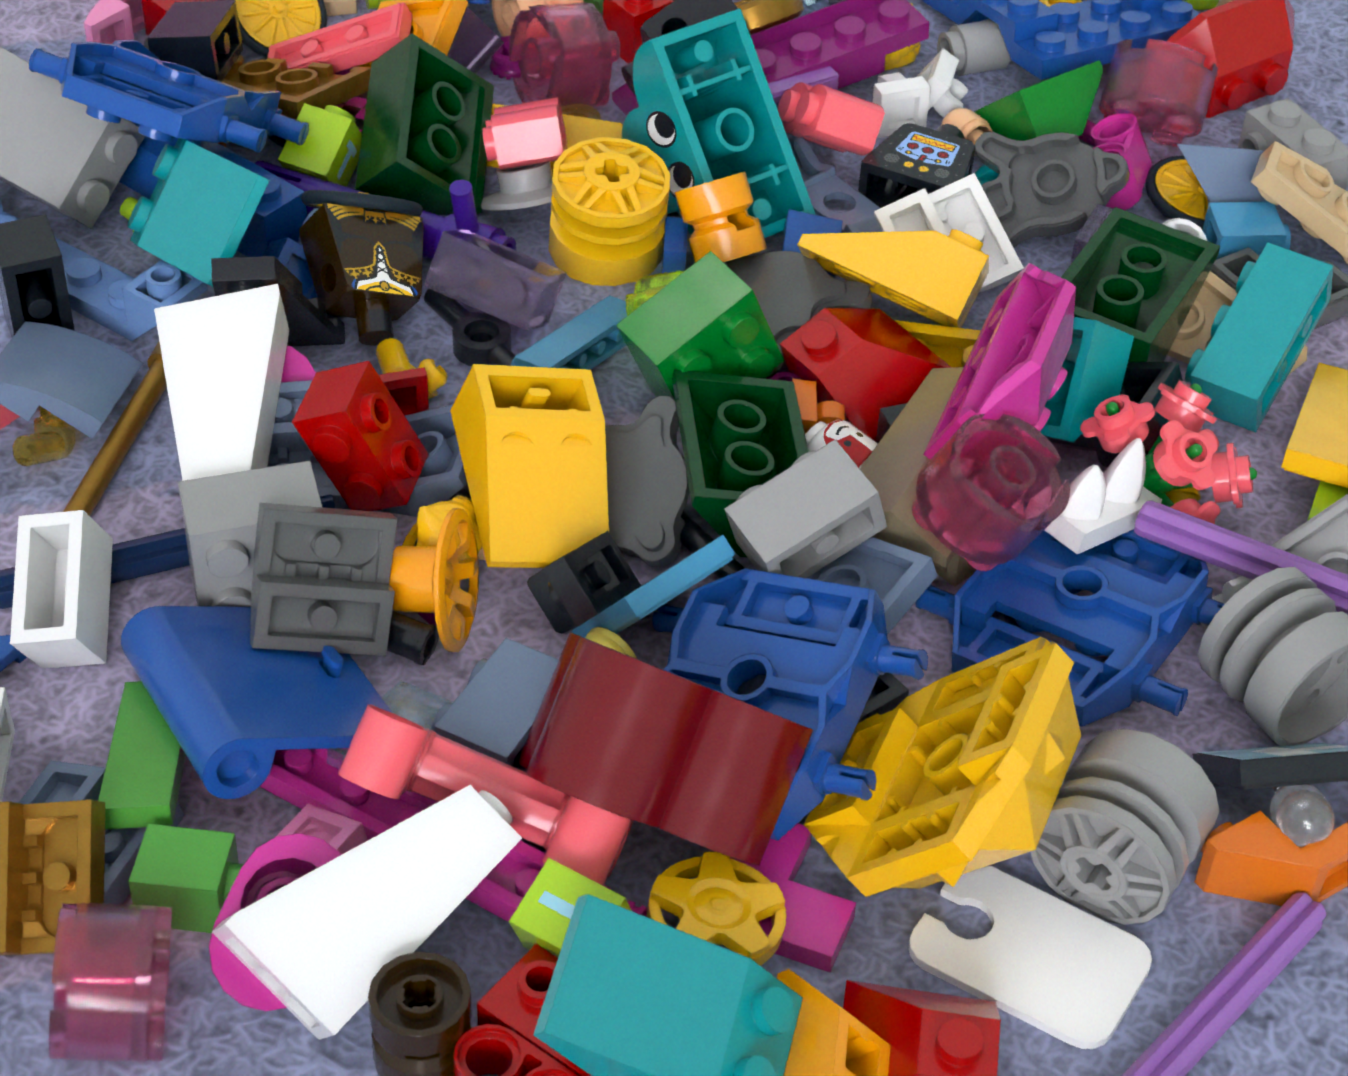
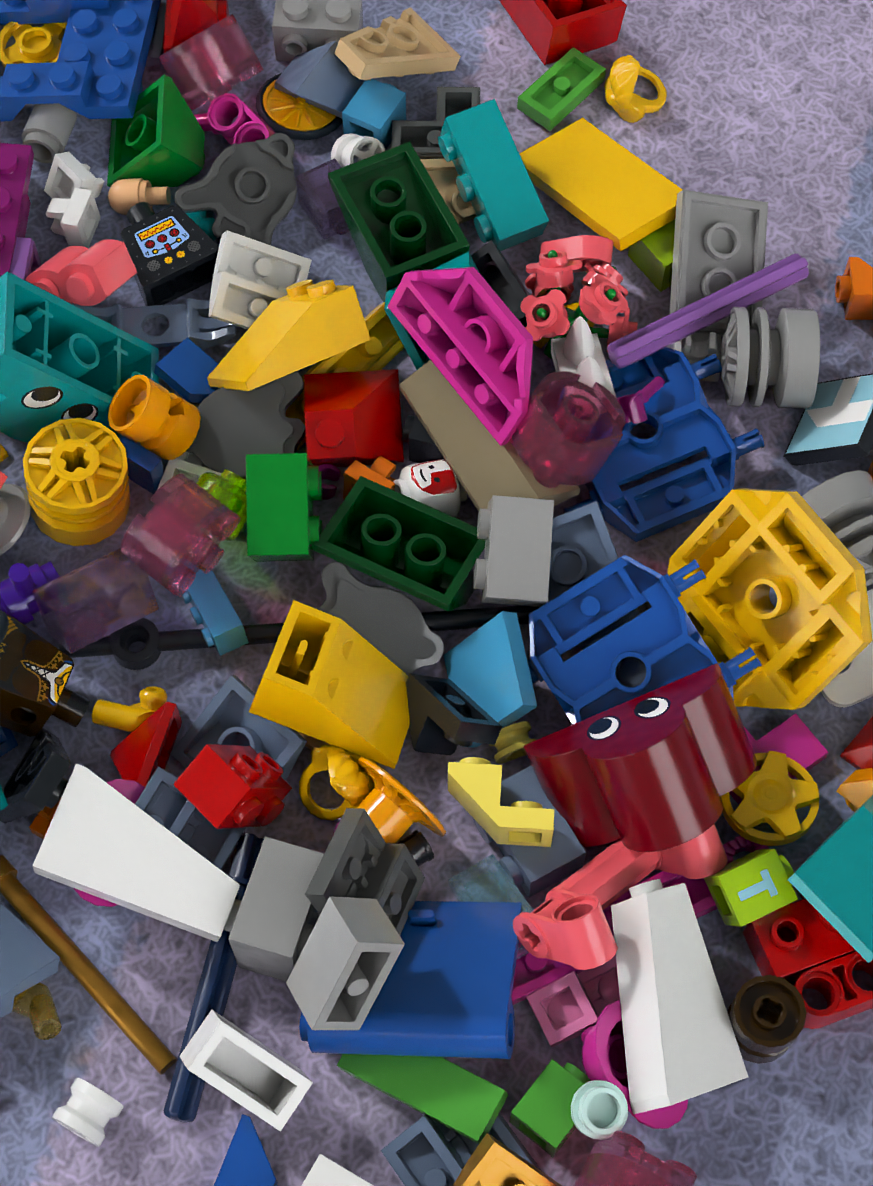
camera: 55 degrees left, 20 degrees up
(195, 887) = (599, 1109): none -> light aqua plate
(204, 568) = (344, 963): none -> light grey brick
(492, 636) = (478, 789): none -> light yellow slope
(591, 263) = (179, 534): none -> clear pink brick
(1085, 548) = (634, 403): none -> magenta hand
(1251, 438) = (587, 248): none -> coral beam

